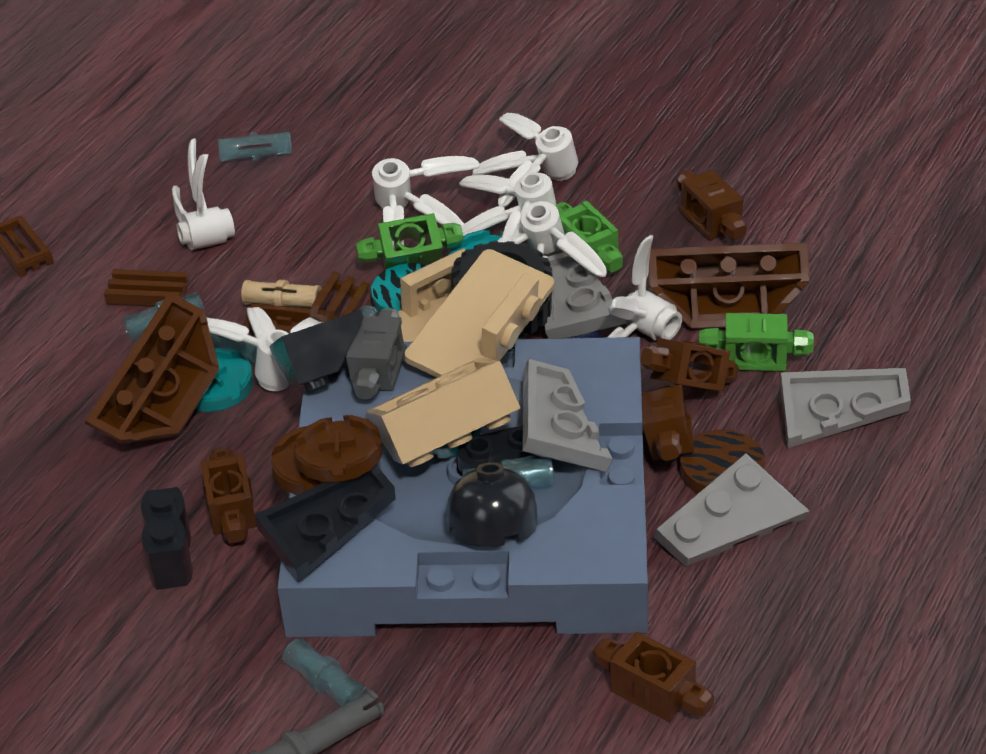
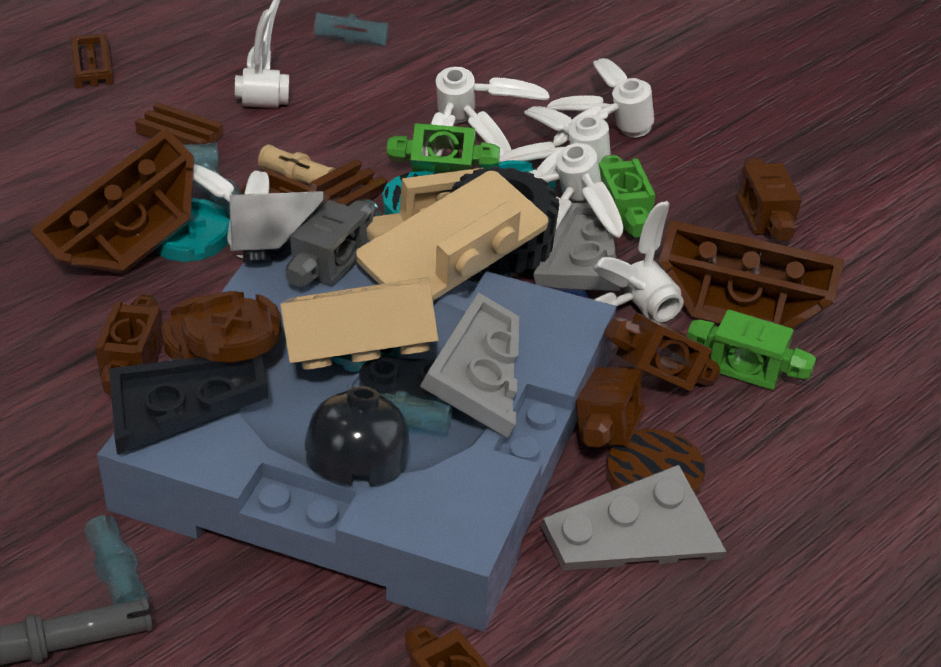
camera: 15 degrees right, 0 degrees up
(166, 538) = (42, 369): black brick -> none
(839, 400) = (816, 439): light grey wing -> none

